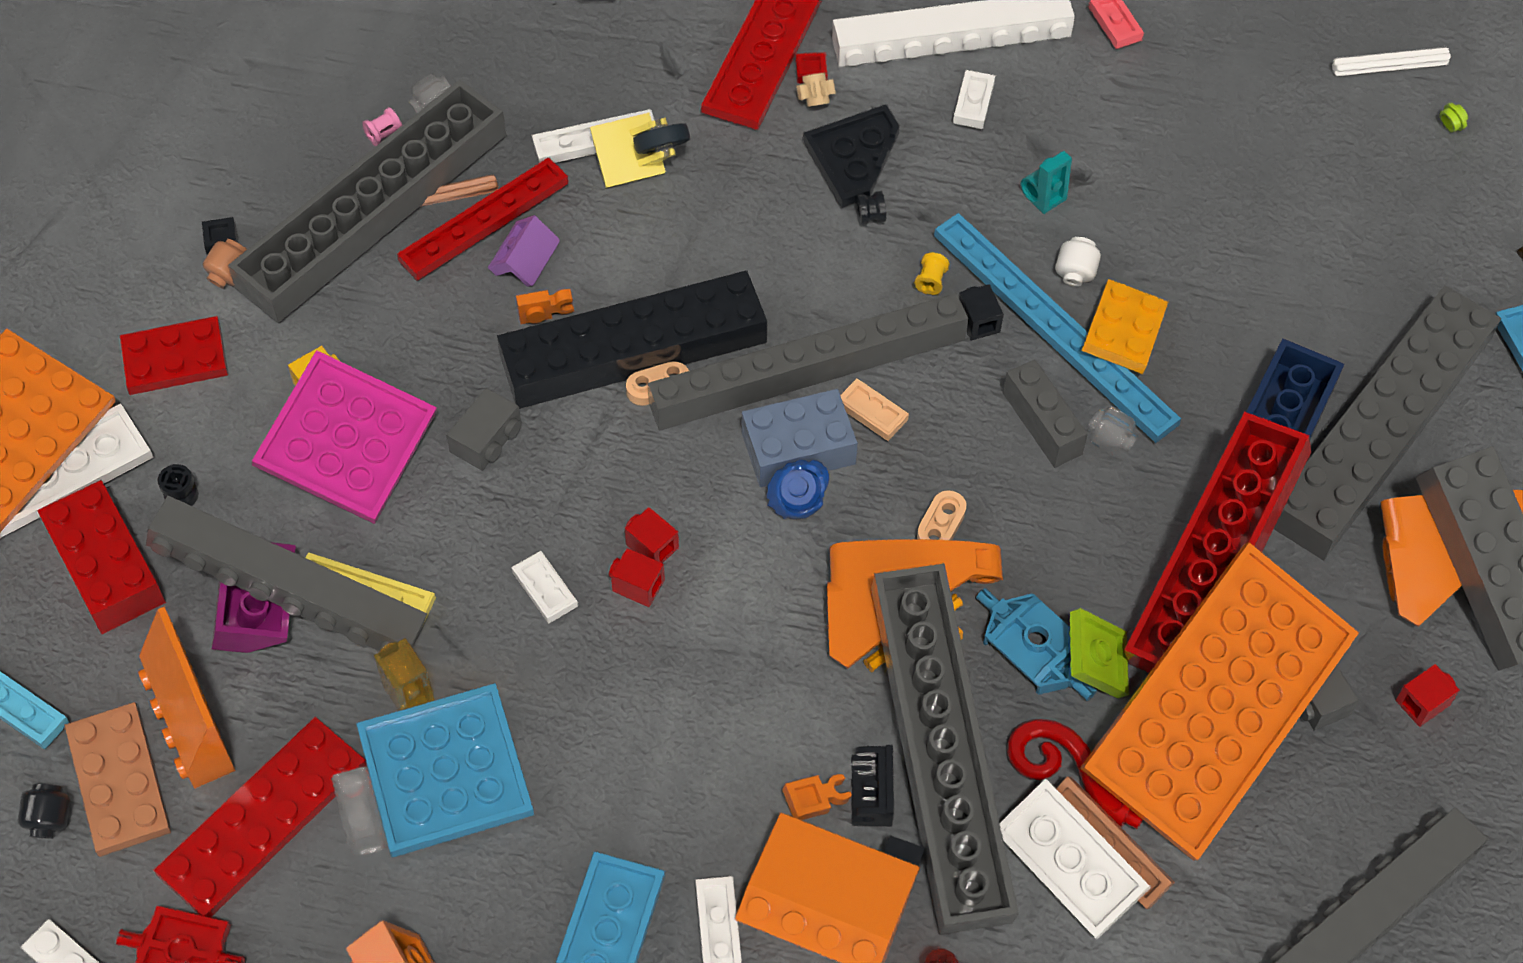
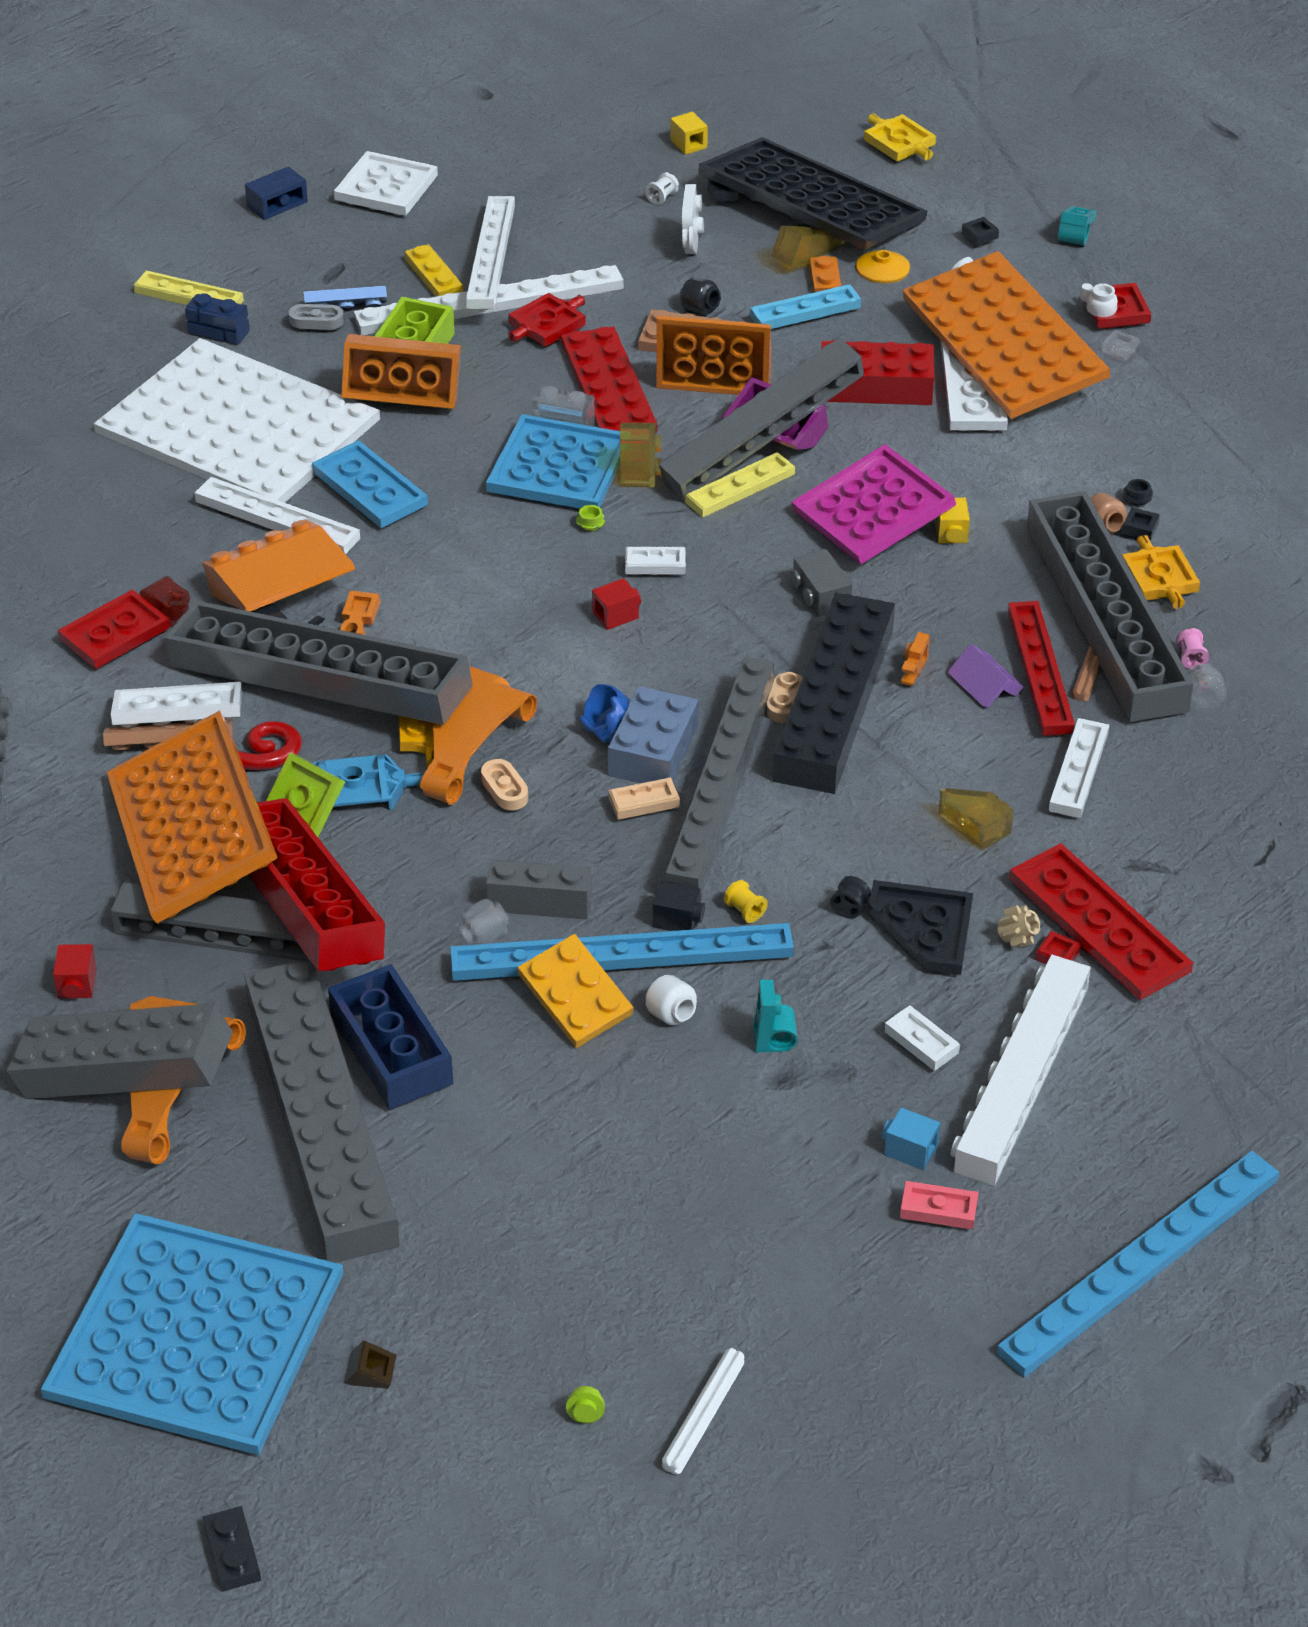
camera: 125 degrees right, 15 degrees down
(167, 260) = (1138, 492): none -> black plate
(173, 355) = (1039, 467): red plate -> none
(178, 483) = (907, 425): black wheel -> none
(283, 189) = (1162, 572): none -> light orange plate
(514, 676) = (590, 518): none -> lime plate
(635, 147) = (1036, 772): light yellow plate -> none
(651, 535) = (643, 624): red brick -> none
(710, 170) = (976, 815): none -> clear yellow slope
(1075, 57) = (911, 1138): none -> dark azure brick

